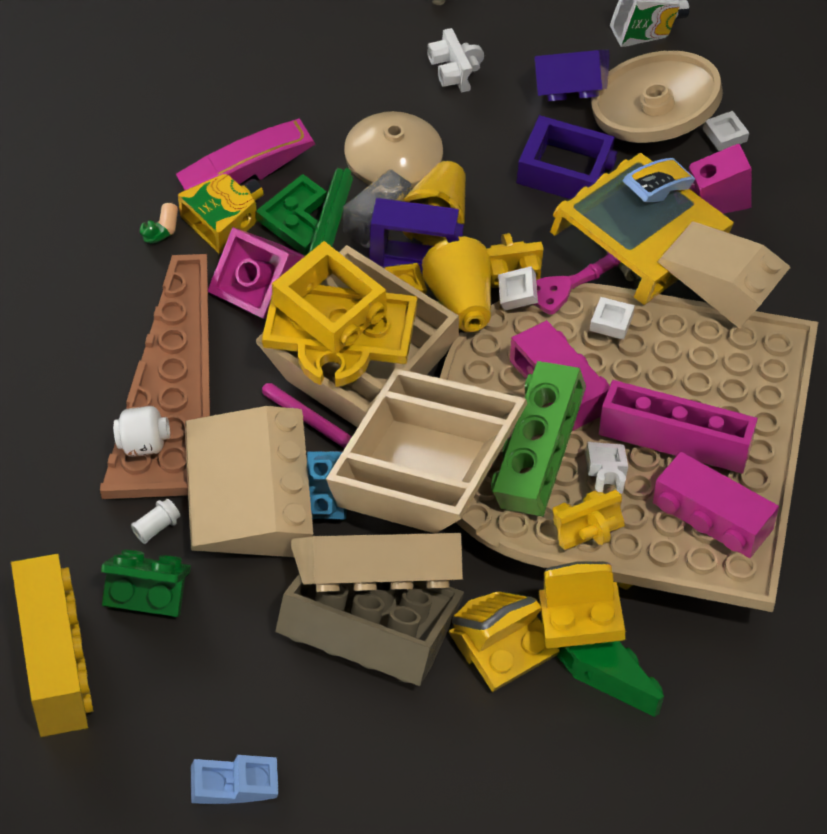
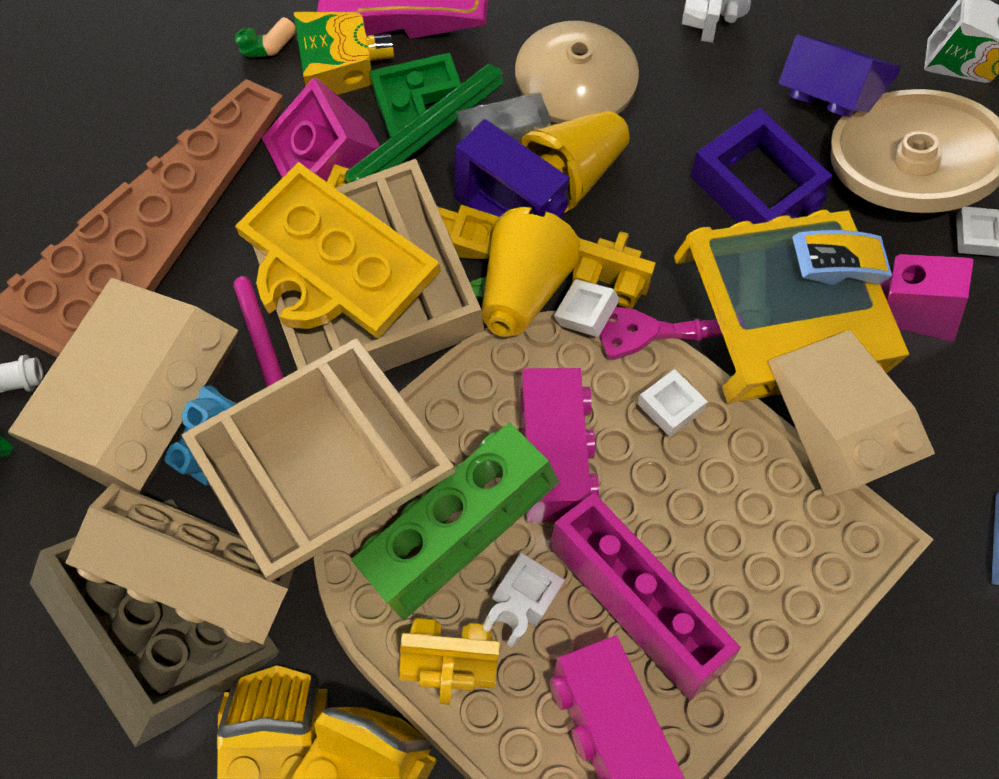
camera: 30 degrees right, 10 degrees up
(141, 431) = (50, 265): white head -> none
(308, 274) = (320, 176): yellow window -> none

